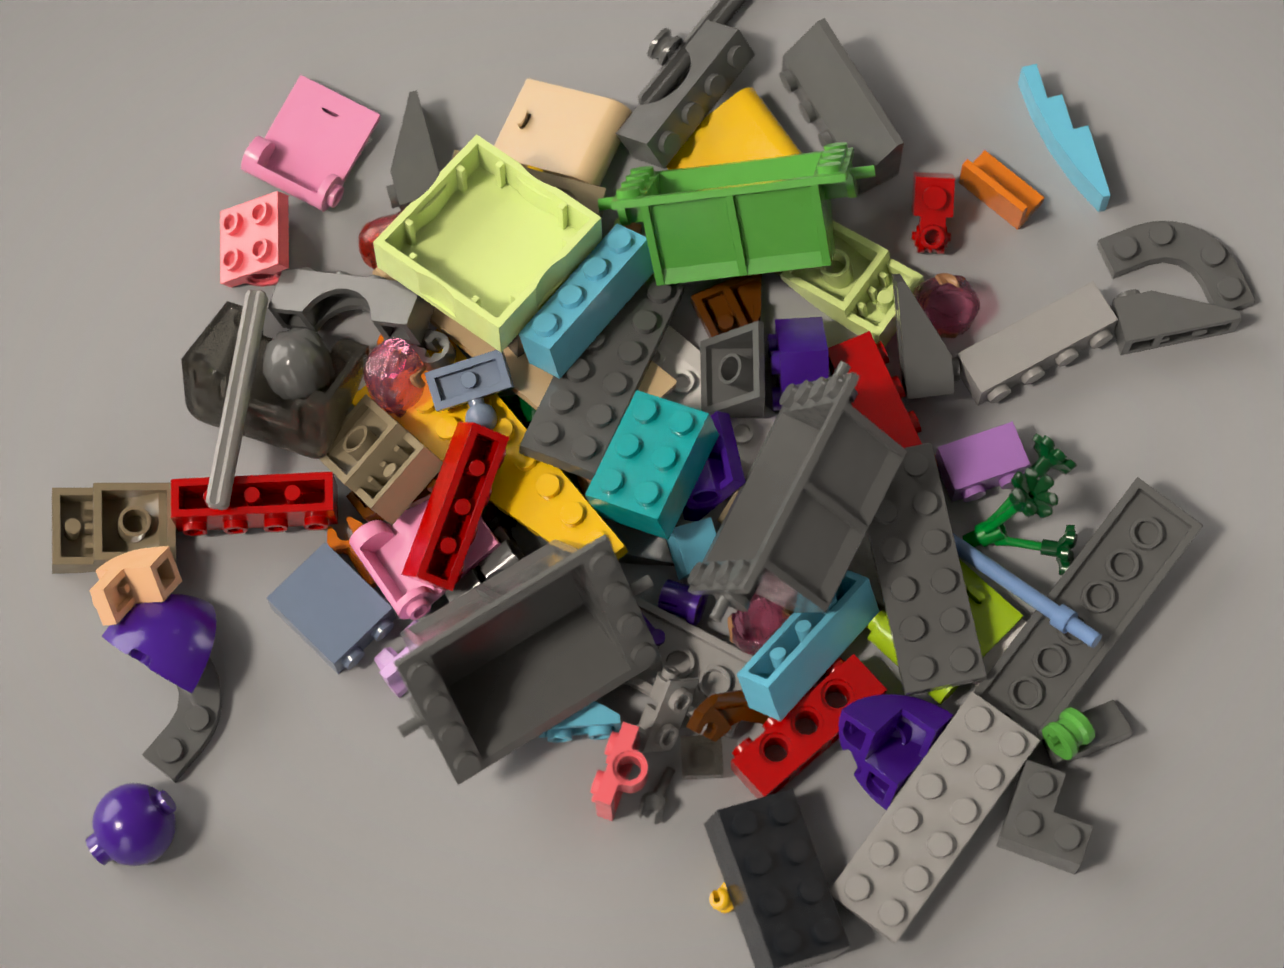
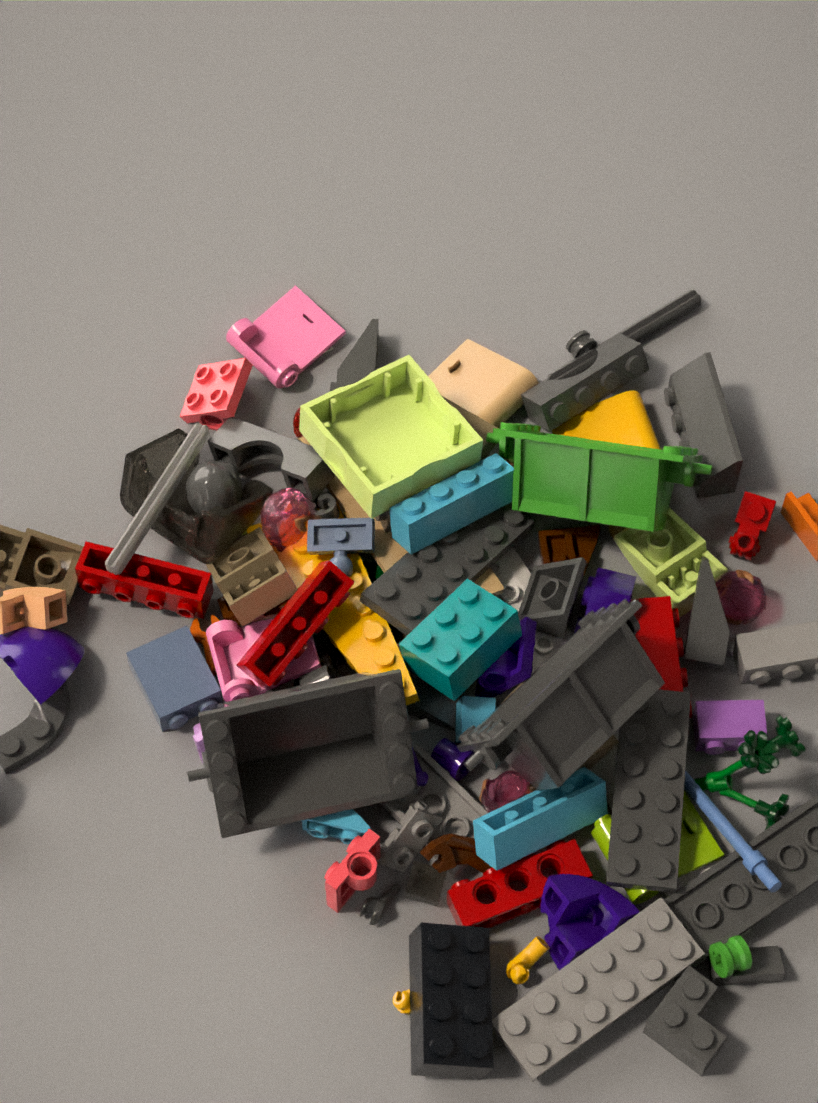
camera: 15 degrees right, 10 degrees down
(841, 807) = (519, 966): none -> yellow arm

